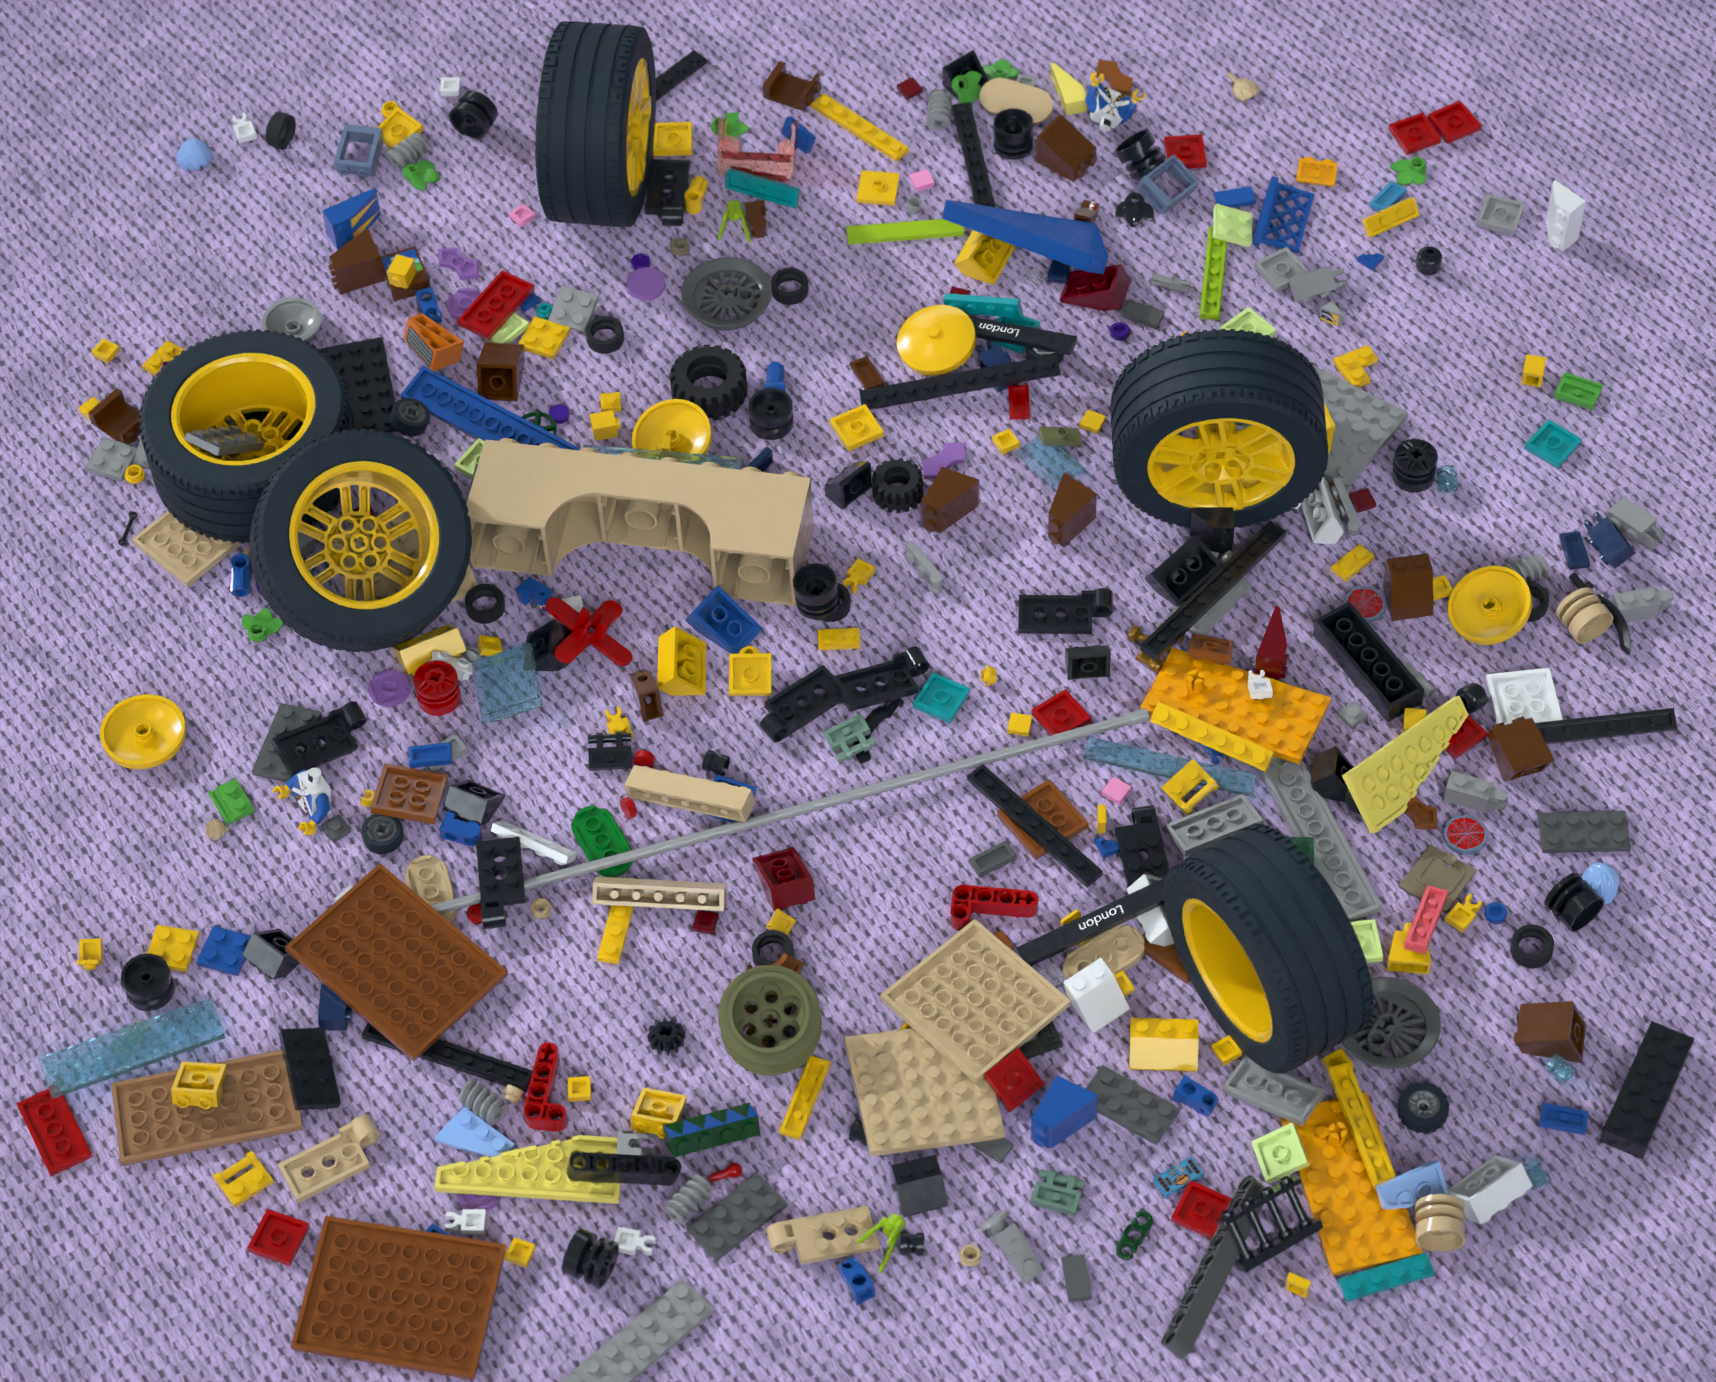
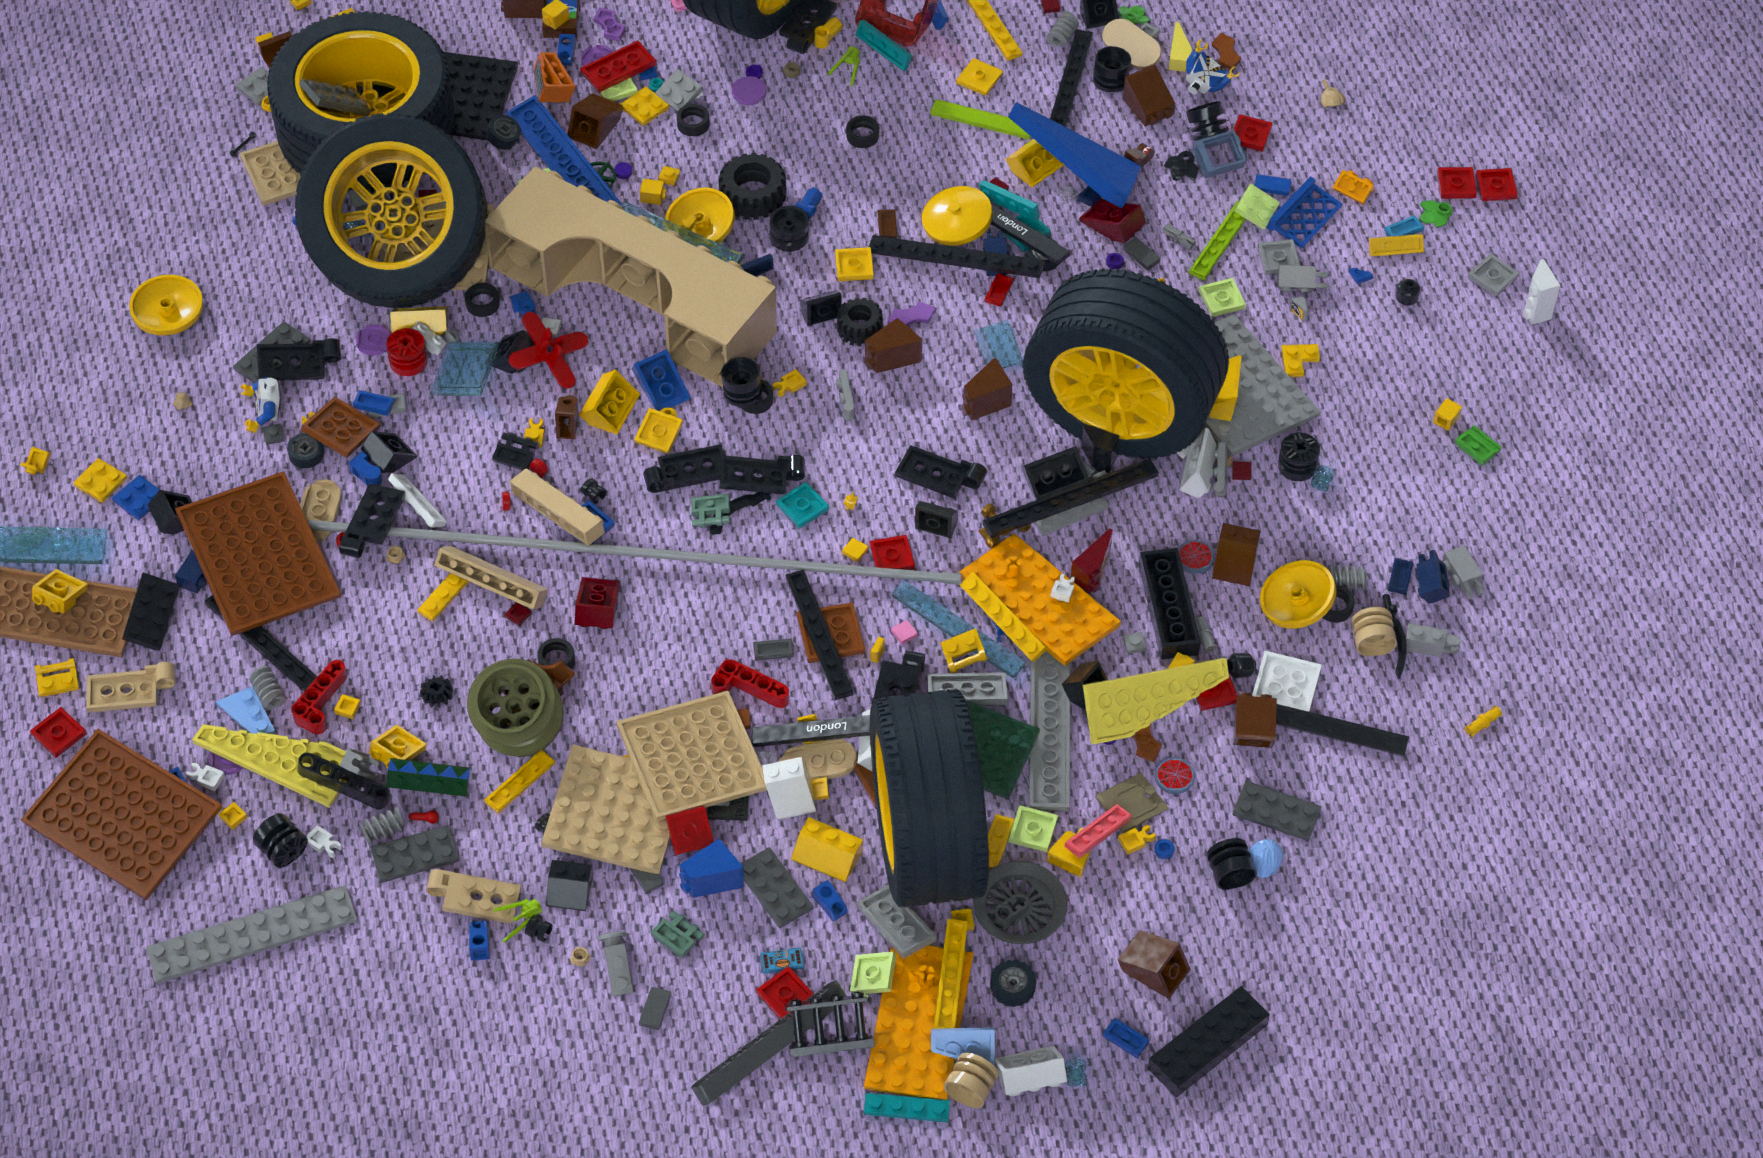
camera: 20 degrees right, 0 degrees up
(147, 982) = (65, 498): black wheel -> none
(231, 802) = (205, 384): bright green plate -> none
(261, 623) = (298, 253): bright green plate -> none
(293, 314) = (452, 25): light grey dish -> none
(489, 645) = (467, 334): yellow plate -> none
(512, 1094) = (294, 691): tan plate -> none
(600, 838) = (472, 516): green tile -> none
(719, 299) = (785, 117): dark grey piece -> none
(757, 223) = (865, 64): reddish brown leg -> none
(780, 922) = (574, 636): yellow tile -> none
(838, 638) = (747, 428): yellow plate -> none
(917, 205) = (1003, 97): light grey hinge -> none
(921, 180) = (1019, 82): bright pink tile -> none
(970, 87) = (1099, 19): bright green plate -> none
(1005, 441) = (969, 318): yellow plate -> none
(1060, 436) = (1015, 329): olive plate -> none
(1106, 847) = (870, 674): blue tile -> none
(1125, 1241) = (710, 994): dark green piece -> none
(1210, 648) = (1043, 545): dark orange plate -> none
(1226, 1050) = (876, 874): yellow plate -> none
(1298, 1285) = (829, 1084): yellow tile -> none
(1352, 562) = (1204, 518): yellow plate -> none
(1441, 587) = (1265, 564): yellow plate -> none
(1474, 793) = (1198, 743): light grey hinge -> none
(1525, 959) = (1174, 900): black tyre -> none
(1553, 443) = (1431, 481): teal plate -> none
(1560, 1069) = (1145, 996): clear light blue wheel -> none

